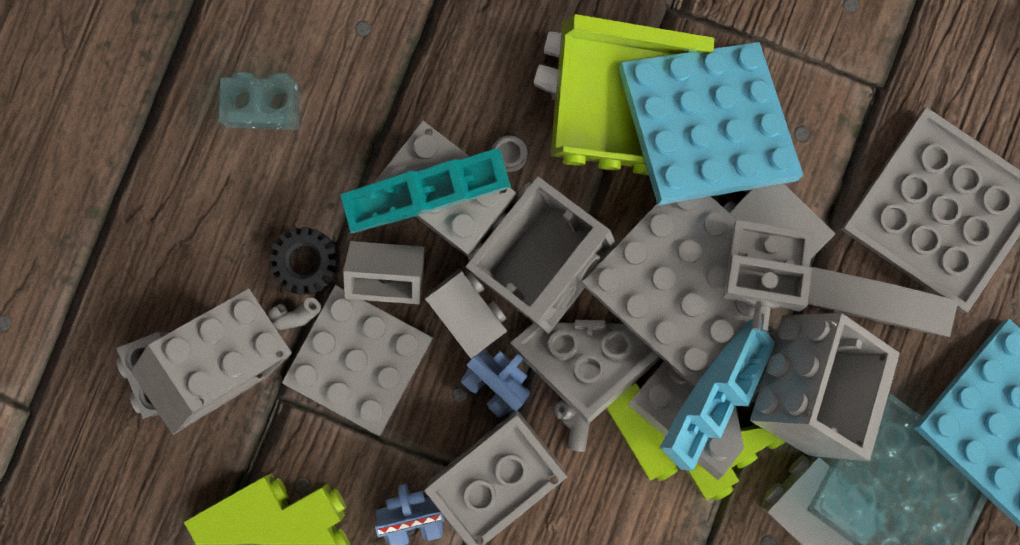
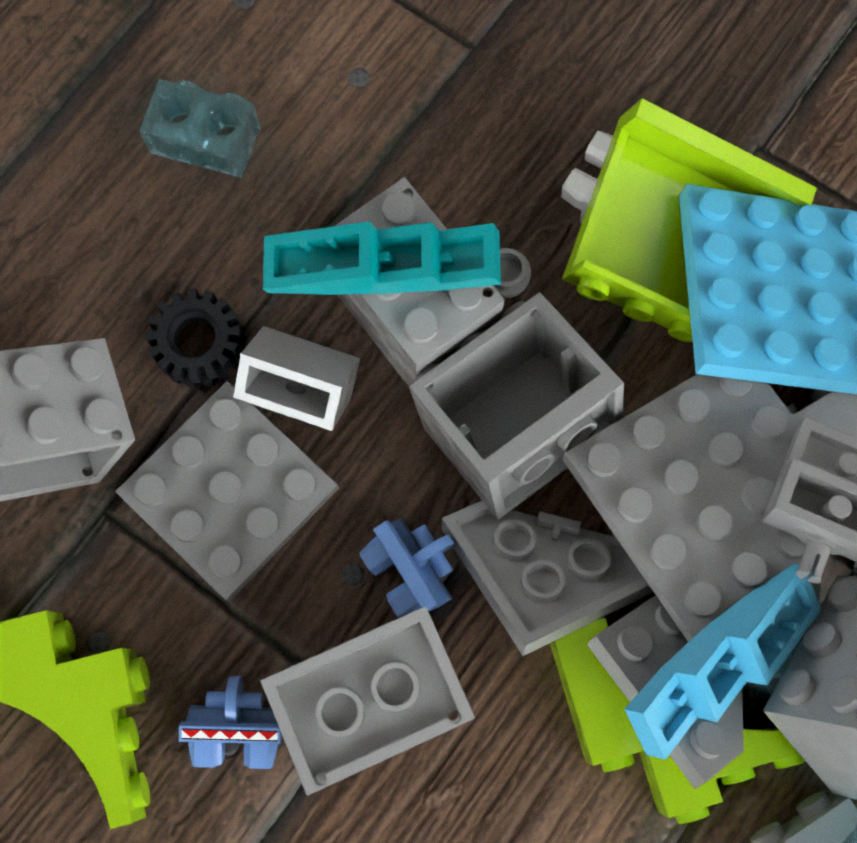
camera: 15 degrees right, 10 degrees down
(298, 317) = (164, 410): light grey arm -> none
(466, 313) = (393, 459): light grey brick -> none
(578, 427) = (504, 655): light grey arm -> none

